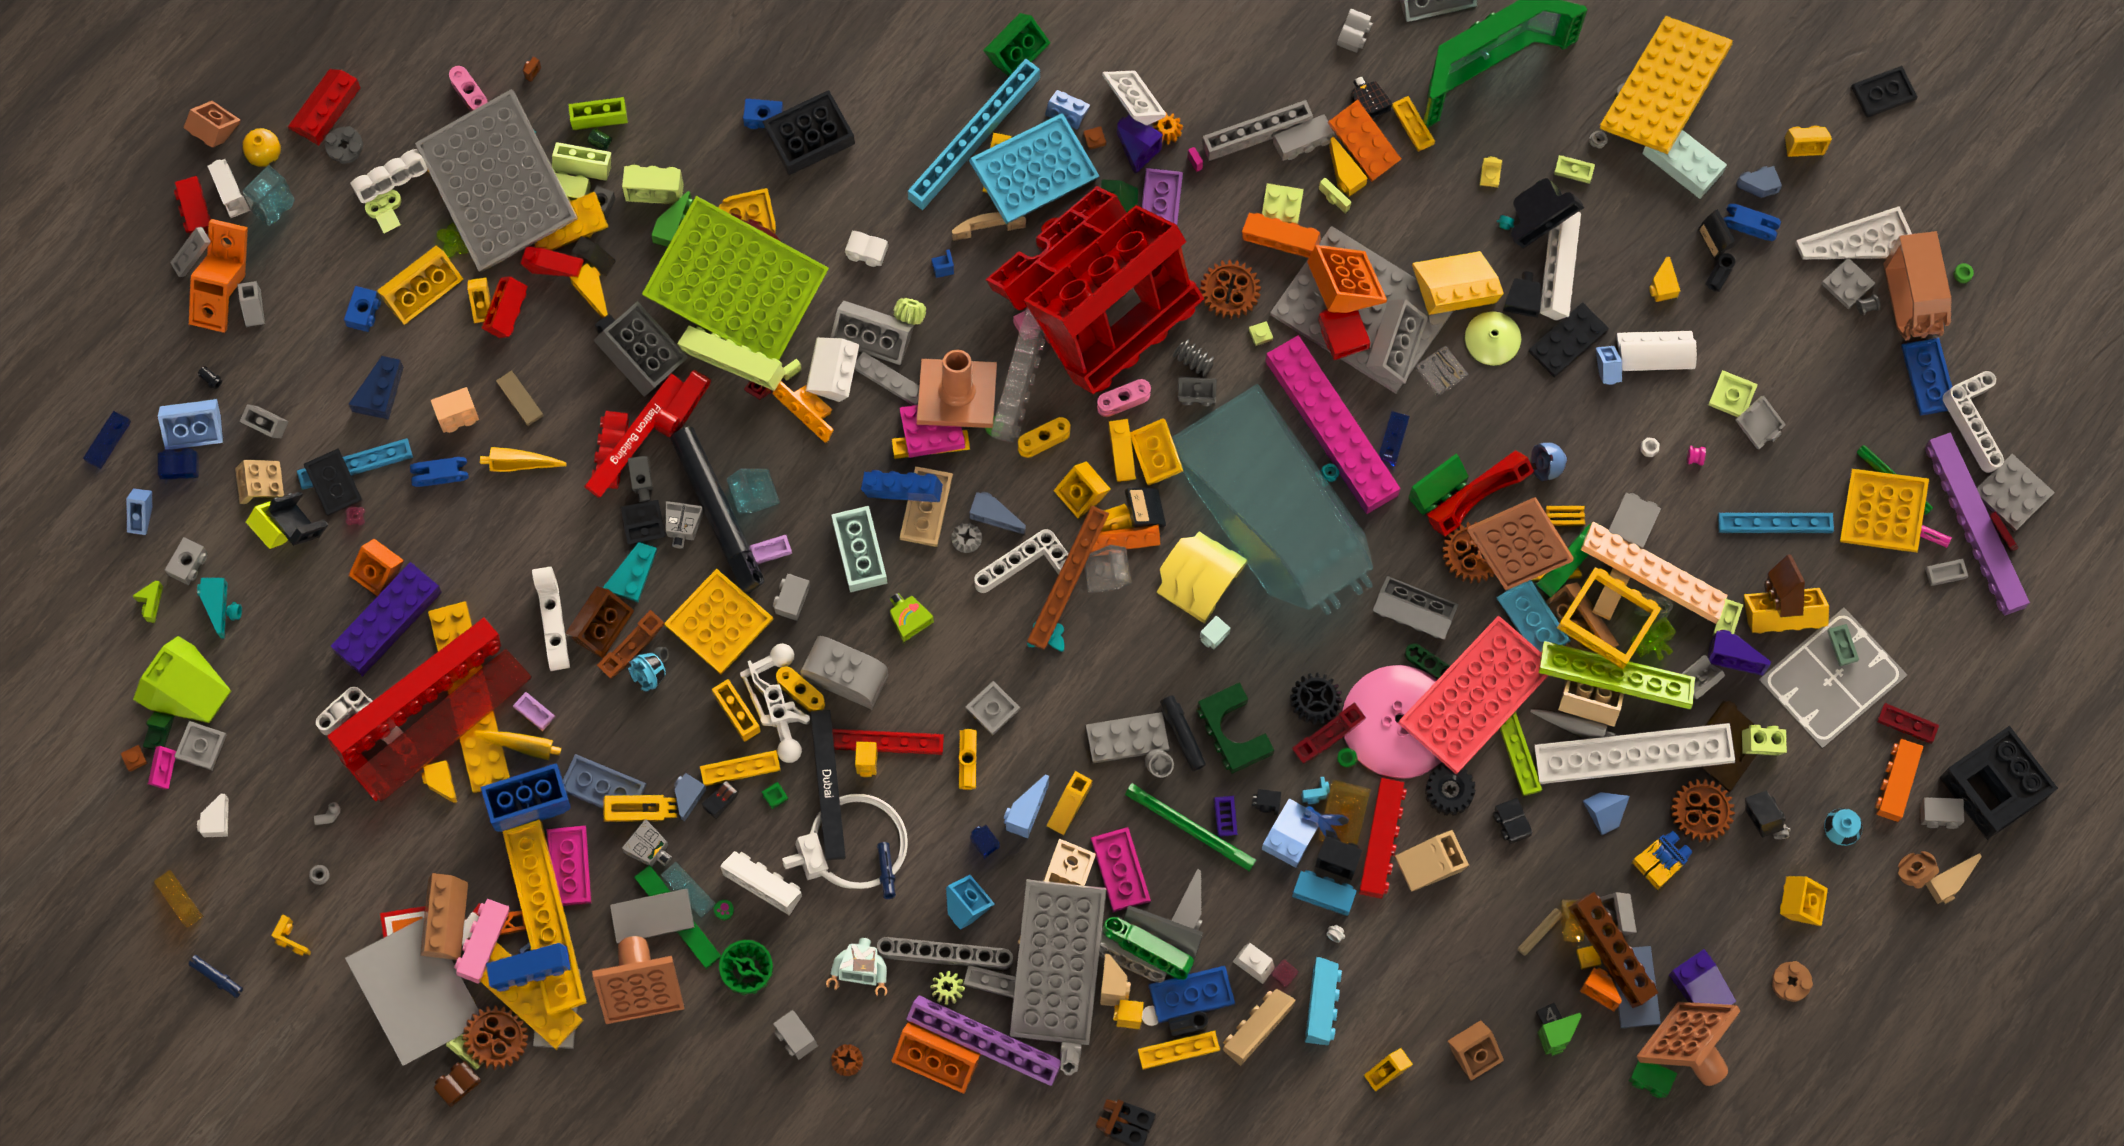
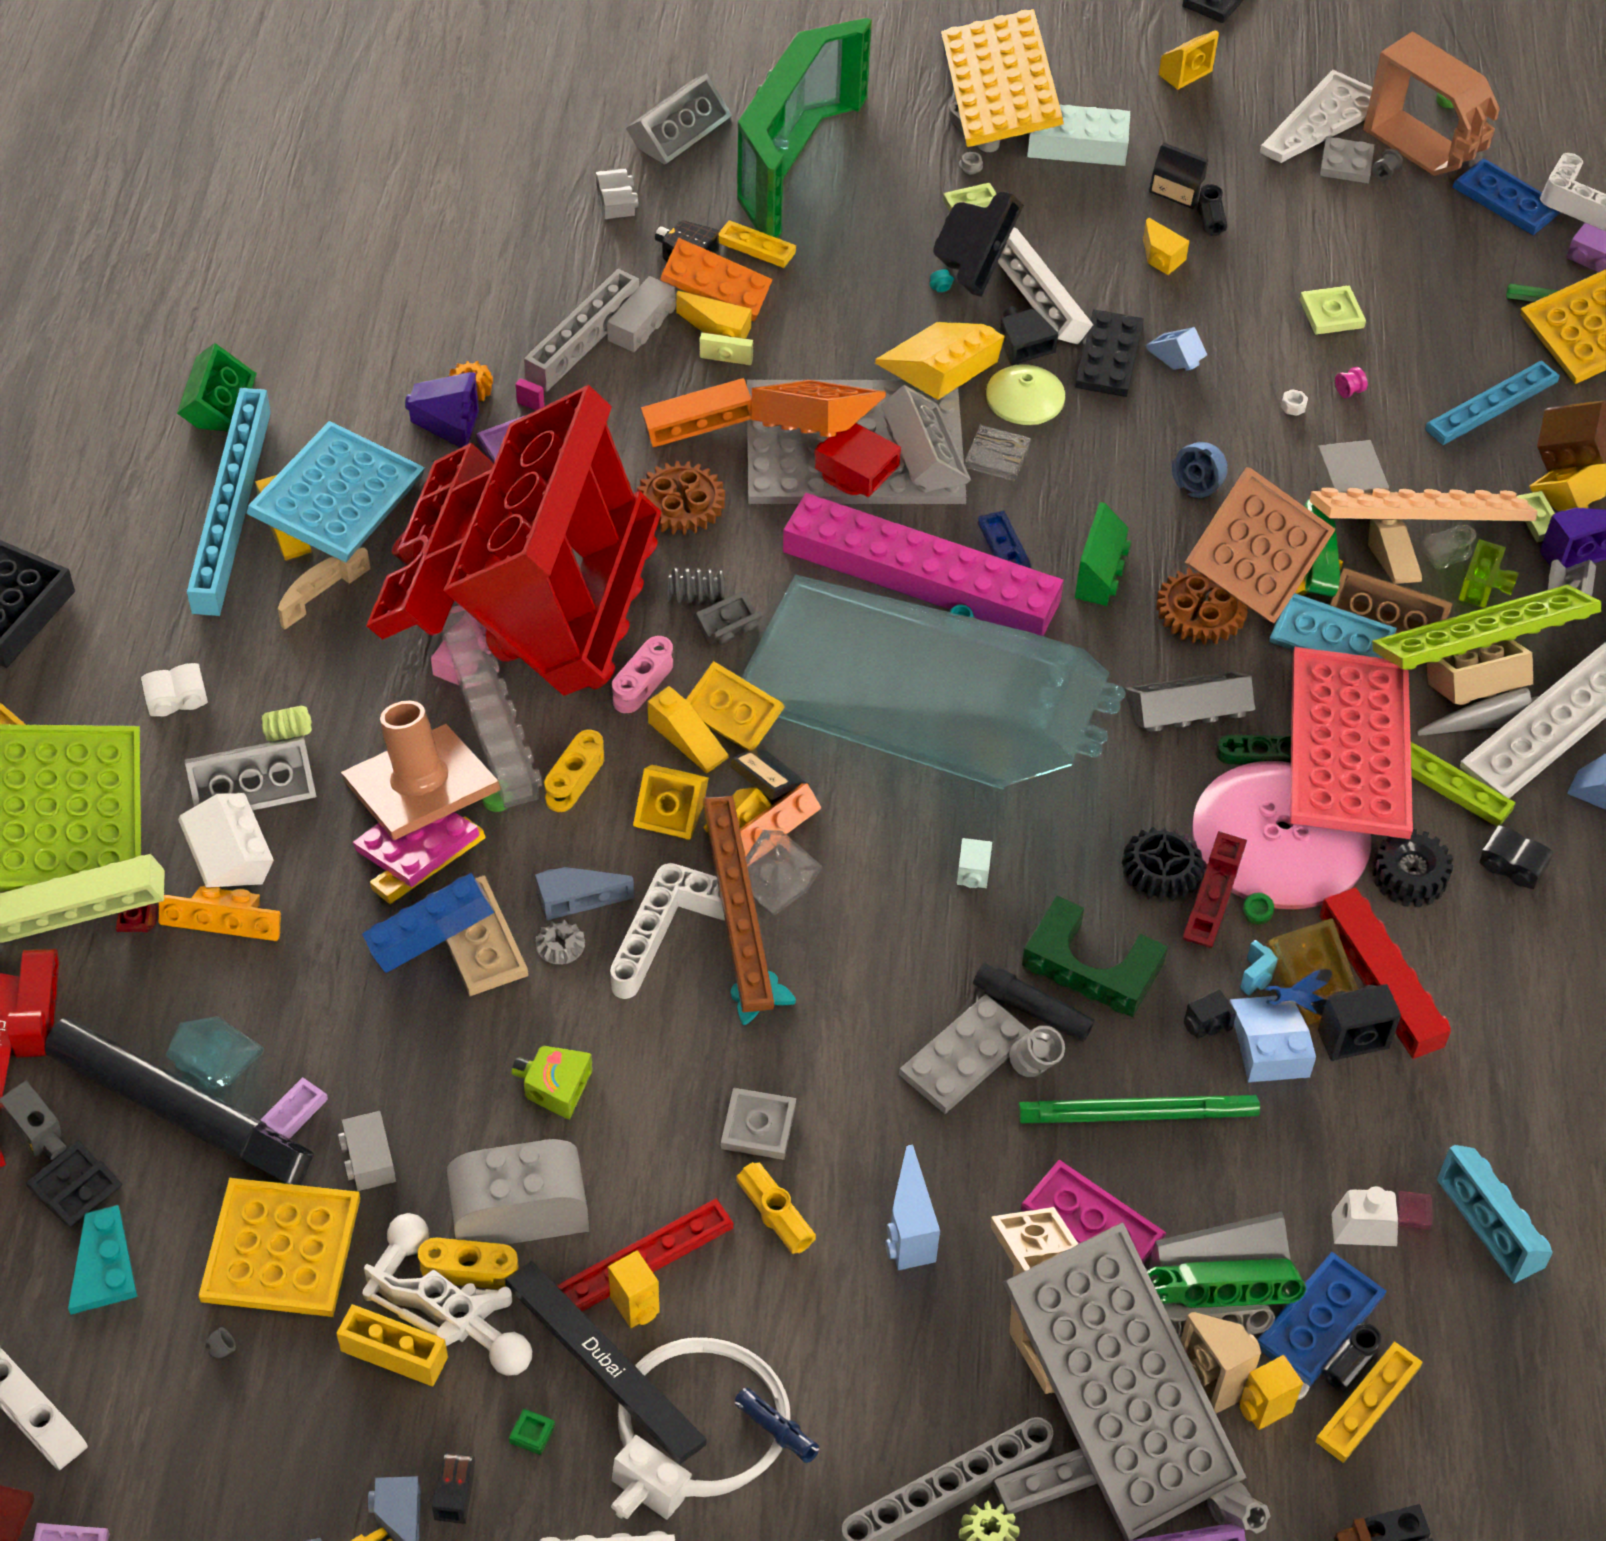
camera: 35 degrees left, 20 degrees down
(599, 621) = (94, 1353): reddish brown slope -> none
(632, 645) = (168, 1356): dark orange slope -> none
(647, 670) = (216, 1373): medium azure cone -> none
(682, 522) = (134, 1148): light grey torso -> none
(740, 768) = (453, 1424): yellow plate -> none
(792, 369) = (172, 874): yellowish green tile -> none
(859, 549) = (423, 1033): light aqua brick -> none
(887, 378) = (313, 819): light grey plate -> none
(943, 265) = (295, 656): blue panel -> none
(966, 901) = (923, 1396): dark azure slope -> none
(984, 840) = (882, 1298): clear blue brick -> none
(1069, 803) = (959, 1173): yellow slope -> none
(1072, 108) = (316, 418): medium blue bracket -> none
(1094, 138) = (387, 435): dark orange plate -> none
(1135, 96) = (408, 364): white slope -> none
(1189, 909) = (1220, 1195): light grey slope -> none
(1198, 574) = (899, 814): light yellow slope -> none
(1230, 799) = (1170, 1053): dark purple slope -> none
(1258, 1026) = (1447, 1295): tan slope -> none
(1260, 333) = (754, 525): yellowish green plate -> none
(1282, 203) = (667, 383): yellowish green plate -> none
(1324, 892) = (1375, 1079): dark azure brick -> none
(1335, 933) = (1432, 1120): white plate -> none
(1432, 861) = (1471, 954): tan slope -> none
(1490, 172) = (880, 245): light yellow bracket -> none
(1506, 472) = (1167, 500): red arch -> none
(1595, 643) = (1426, 600): yellow window -> none
(1657, 350) = (1218, 308): white brick -> none
(1752, 222) = (1209, 148): blue piece -> none
(1760, 183) = (1176, 117): sand blue slope -> none
(1760, 422) = (1388, 316): light grey piece -> none

